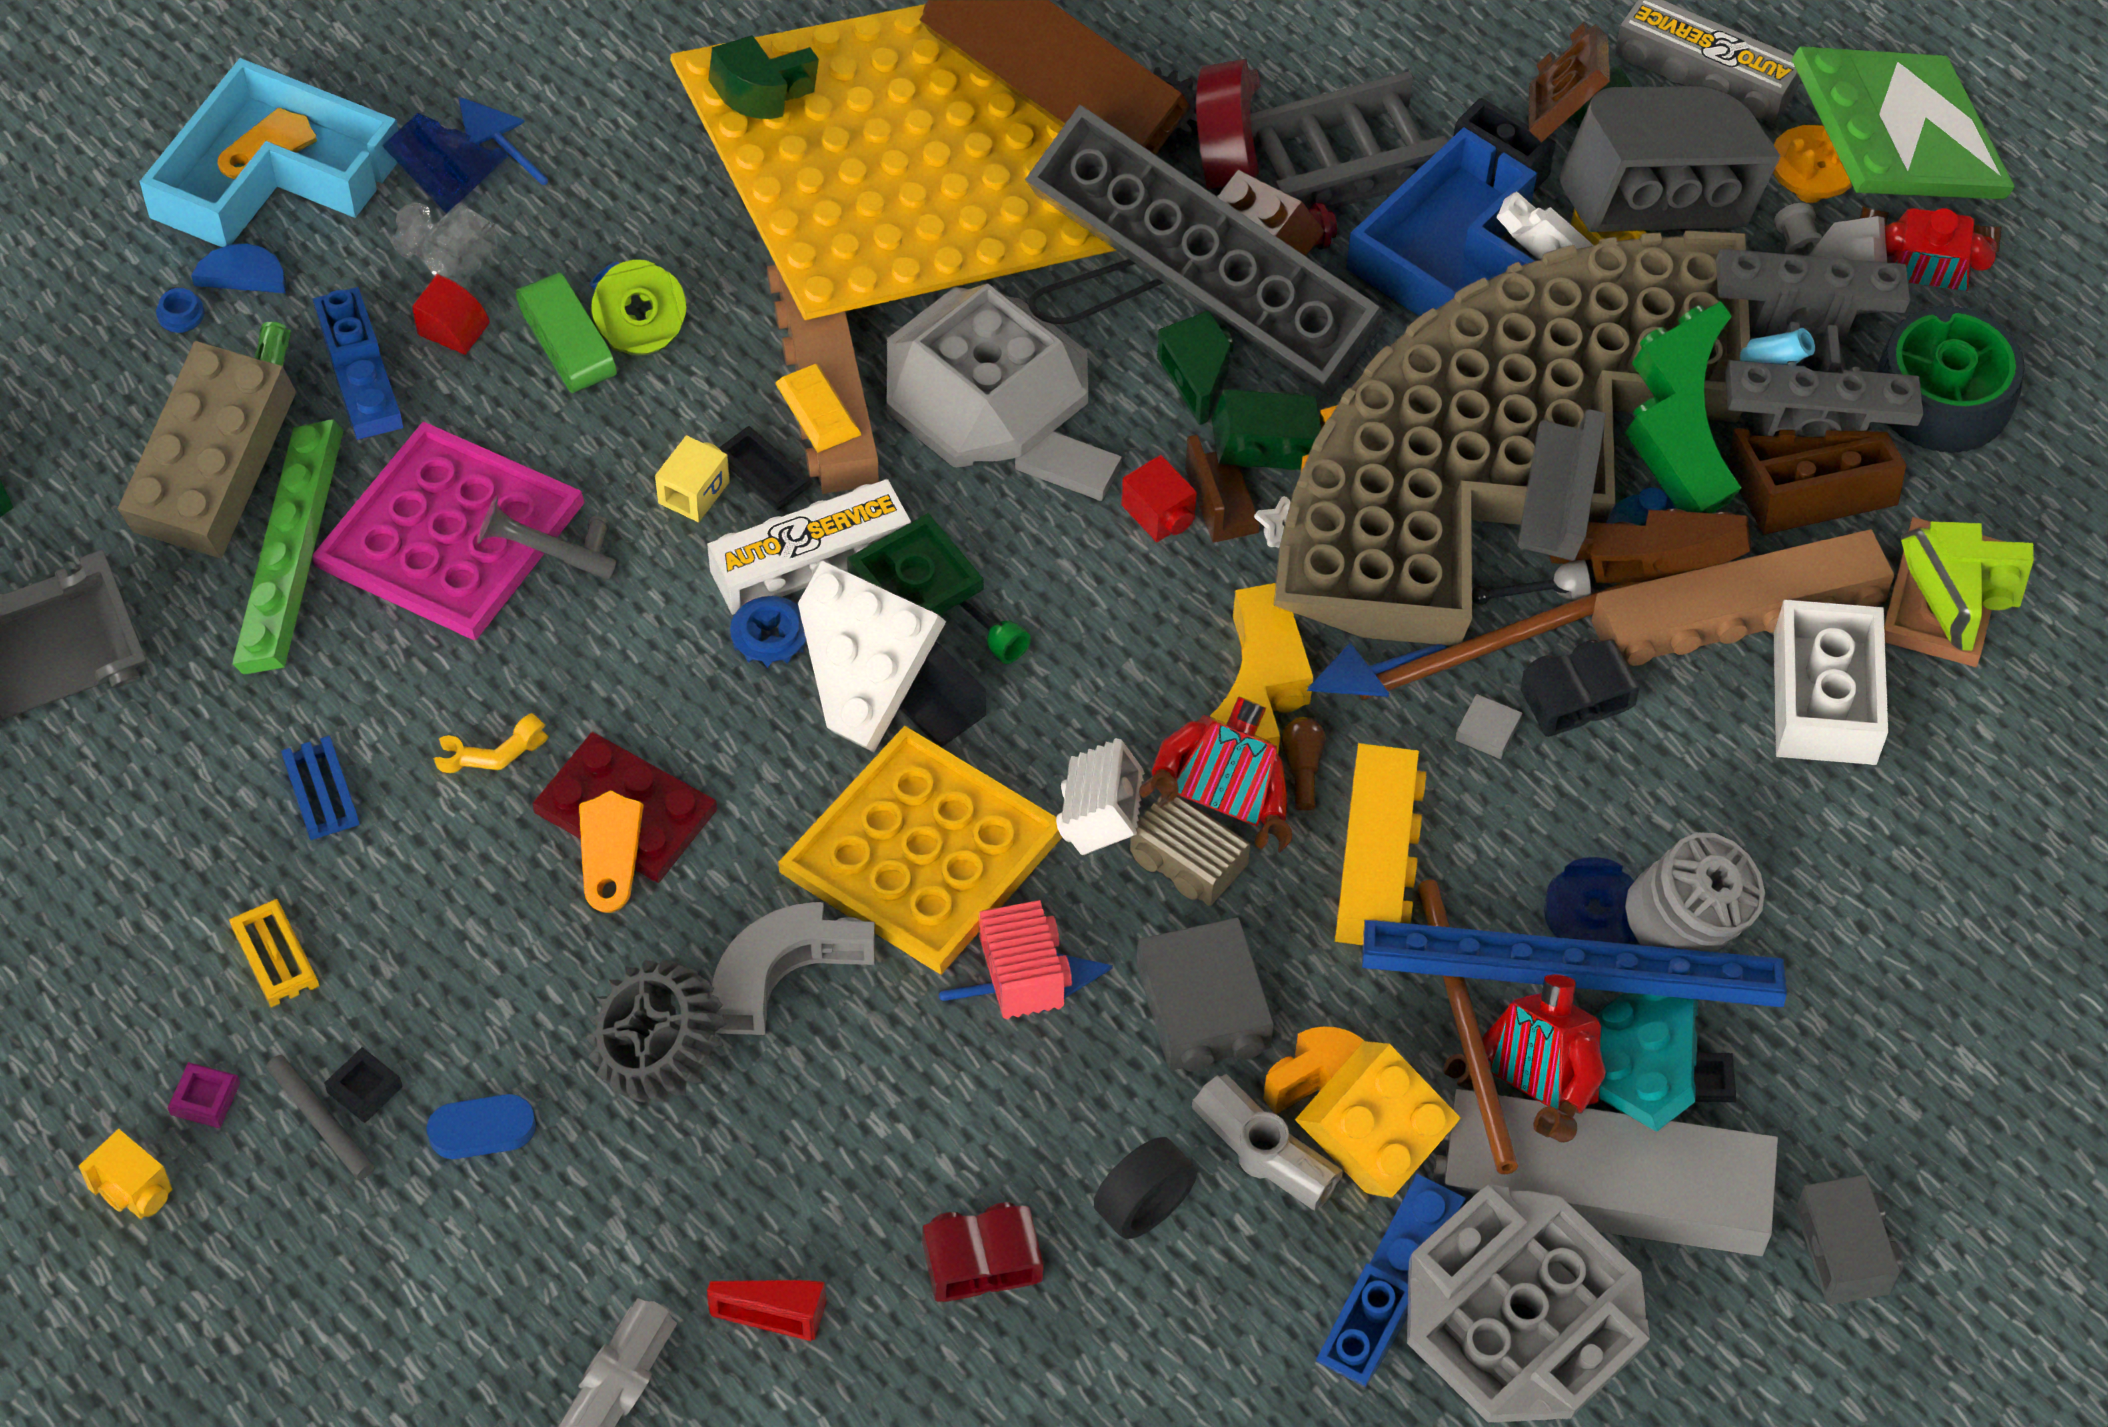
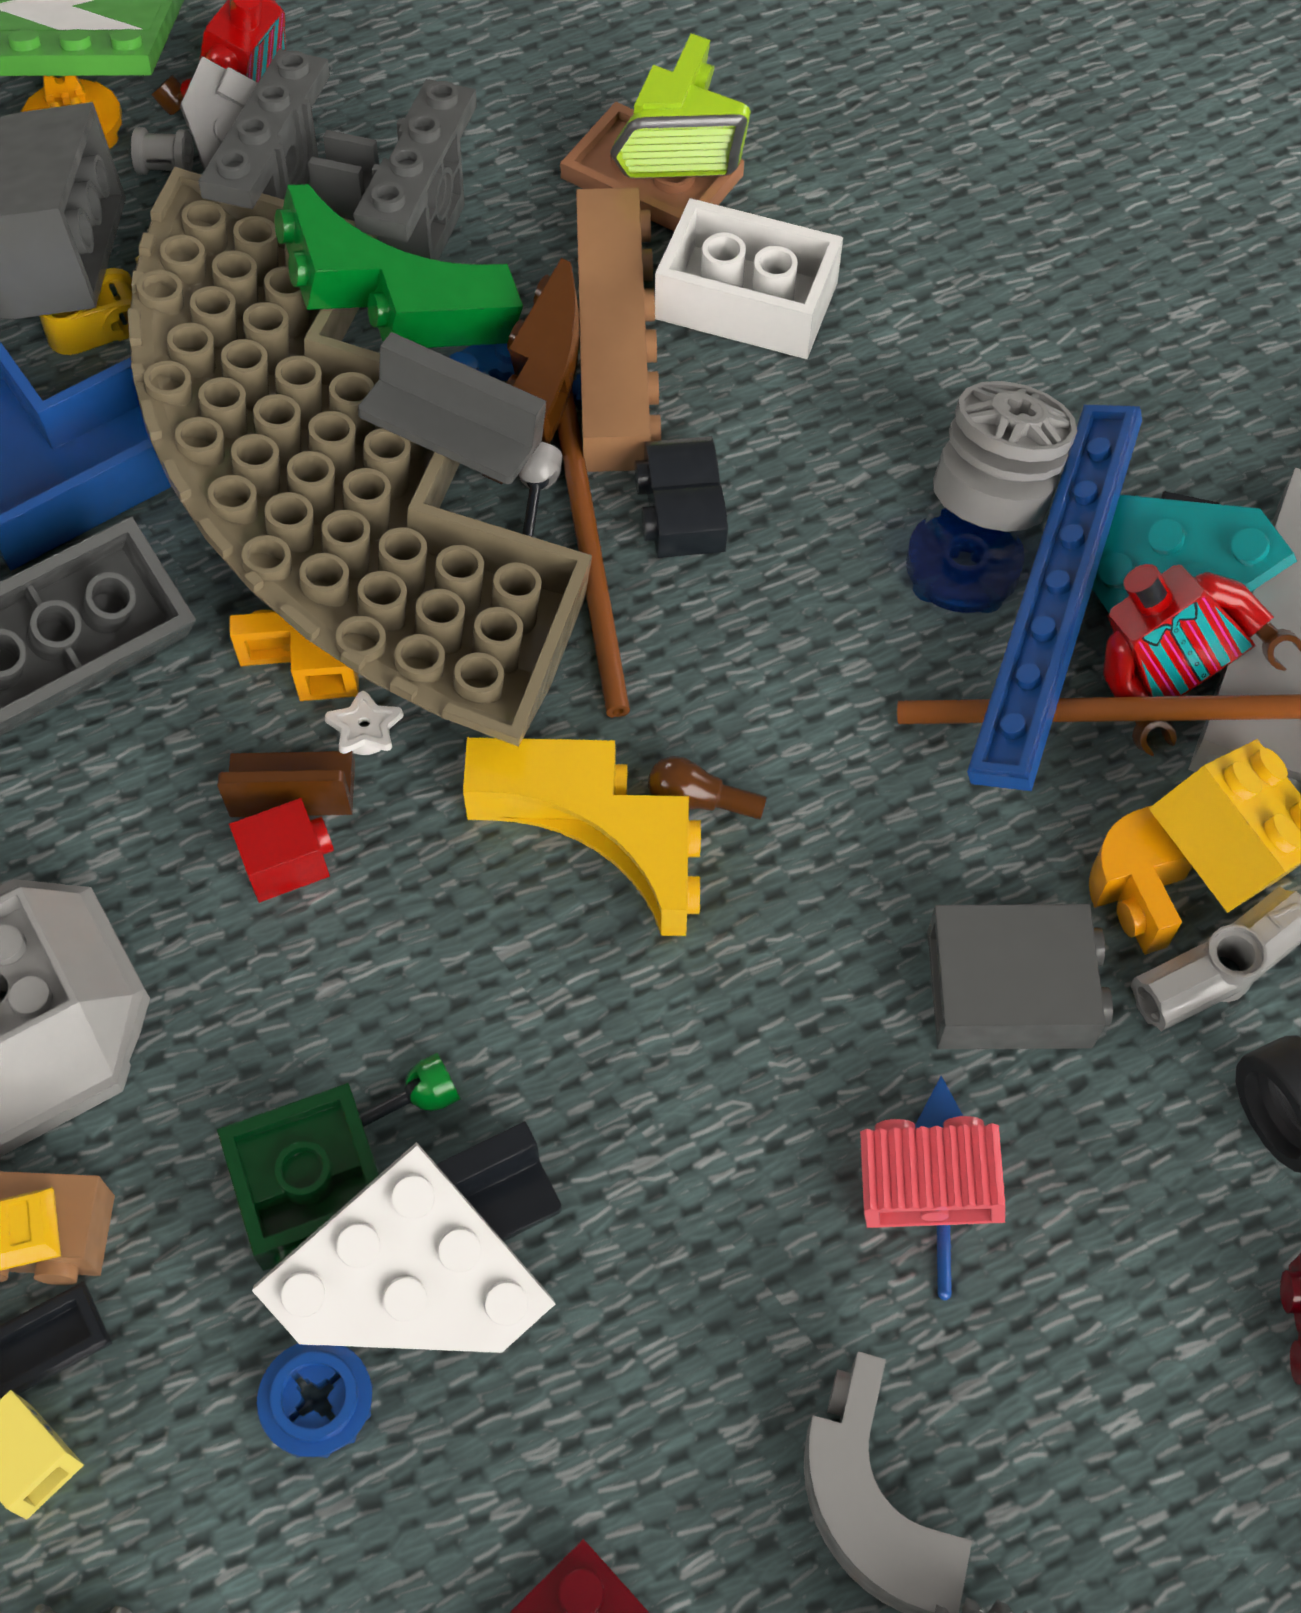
camera: 75 degrees left, 5 degrees up
(788, 549) = (197, 1313): white brick -> none
(921, 848) = (725, 1271): yellow plate -> none
(1071, 465) = (182, 942): light grey tile -> none
(1101, 797) = (726, 1021): white brick -> none
(1189, 849) = (805, 943): dark tan brick -> none
(1196, 360) = (90, 756): dark green slope -> none
(1226, 771) = (732, 865): torso -> none
(1264, 428) = (229, 704): dark green brick -> none
(1352, 675) = (607, 708): blue piece -> none
(1379, 840) = (846, 742): yellow brick -> none
(1488, 726) = (702, 598): light grey tile -> none
(1538, 229) = (82, 345): white hinge -> none
(1779, 348) = (348, 177): medium azure cone -> none
(1815, 479) = (488, 208): reddish brown wedge -> none
(1966, 376) = (384, 63): wheel -> none

